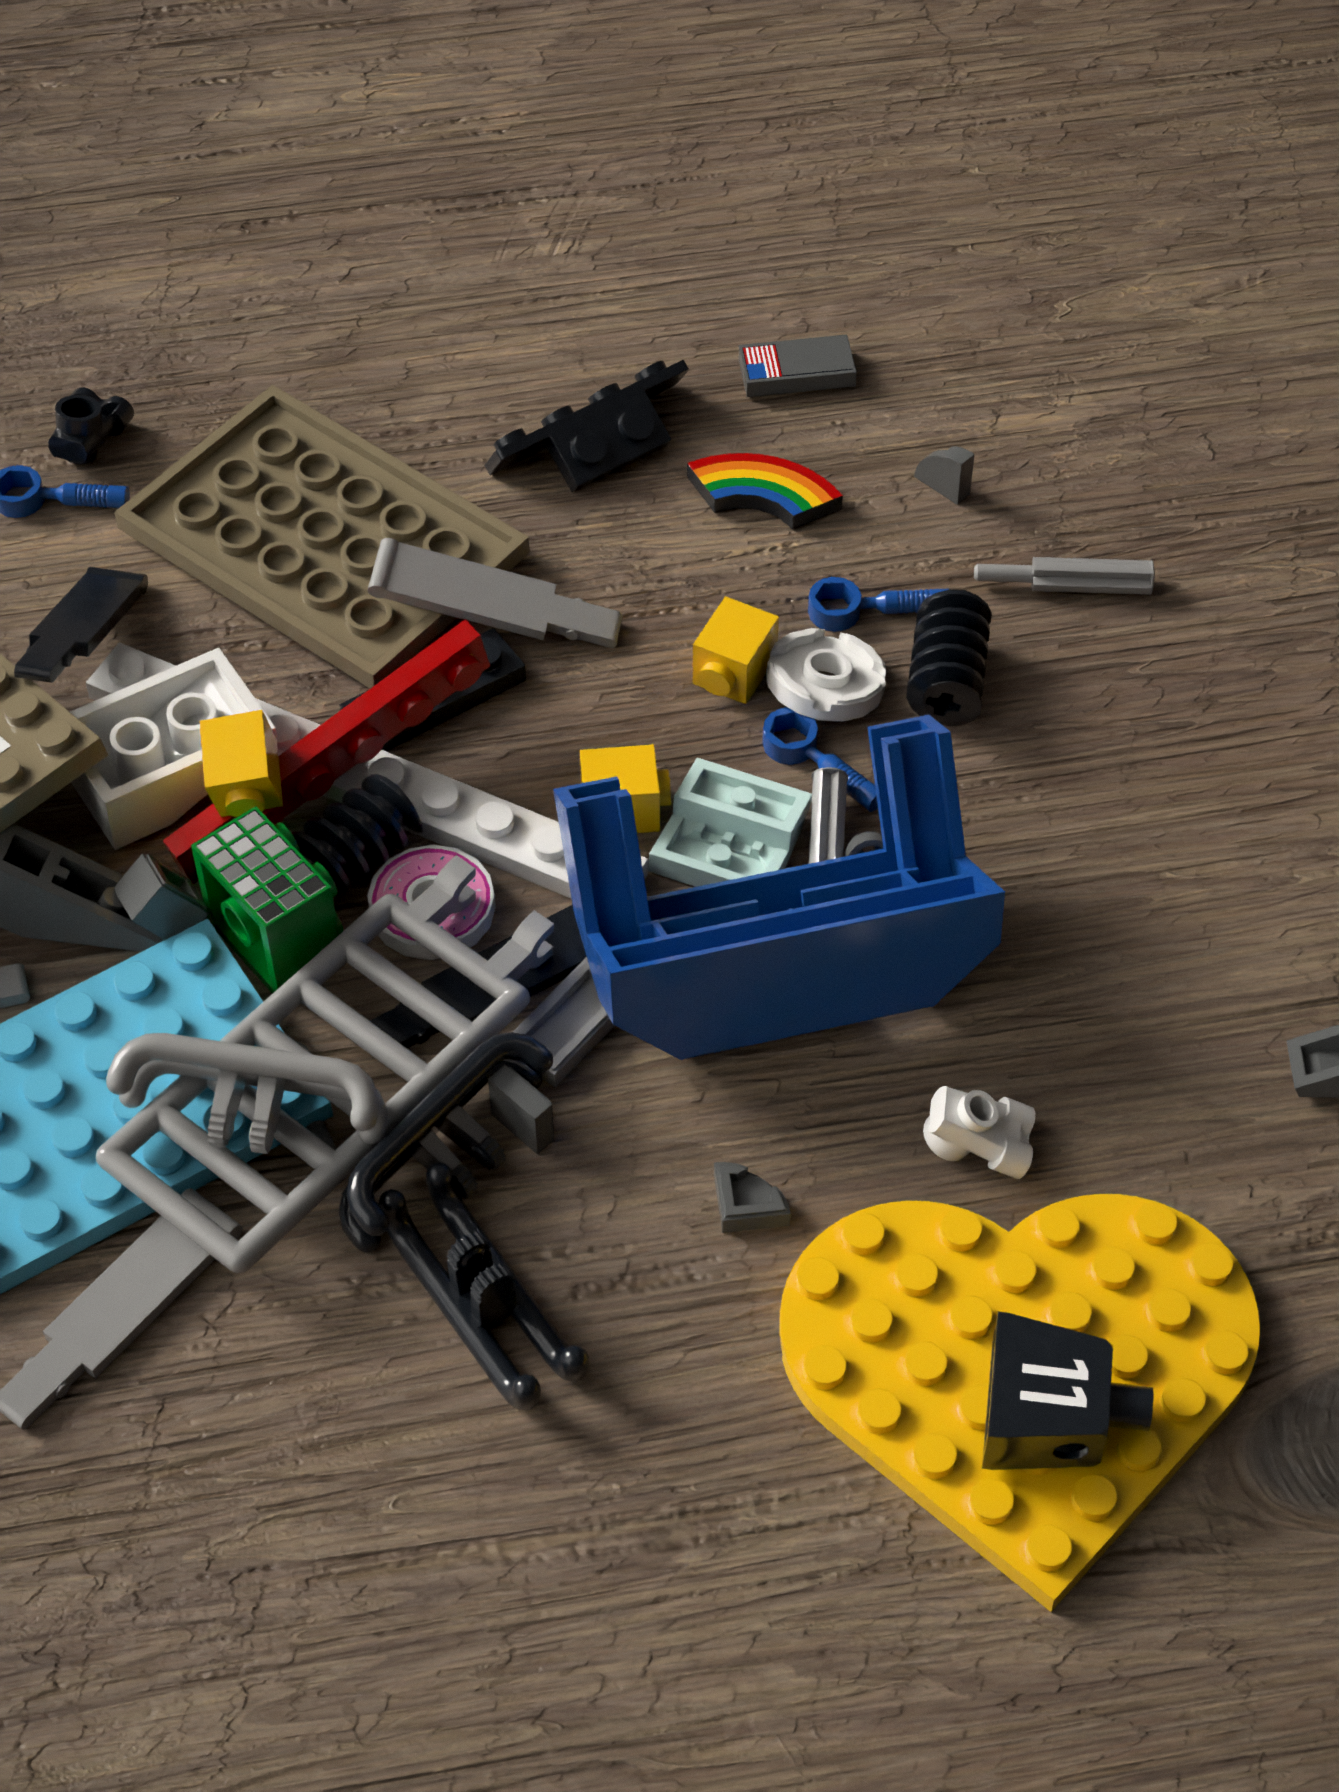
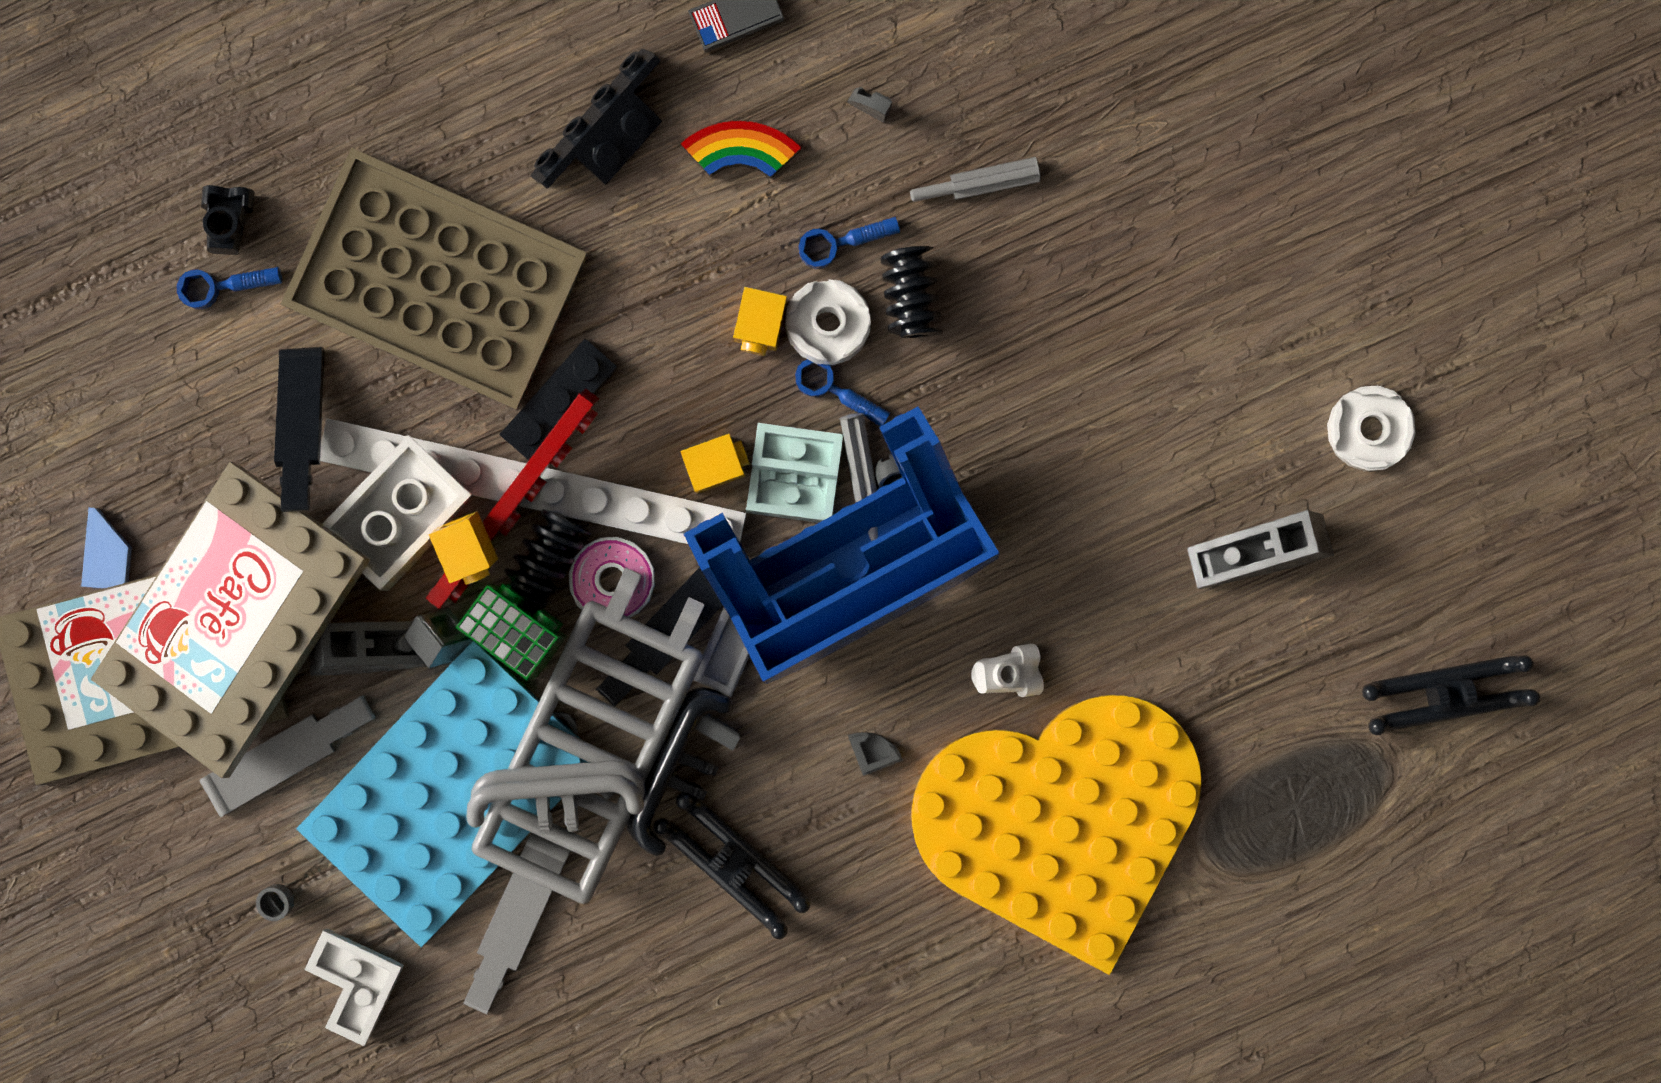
camera: 15 degrees left, 35 degrees up
(487, 595) = (572, 318): light grey piece -> none
(1054, 1397) = (1089, 866): black torso -> none

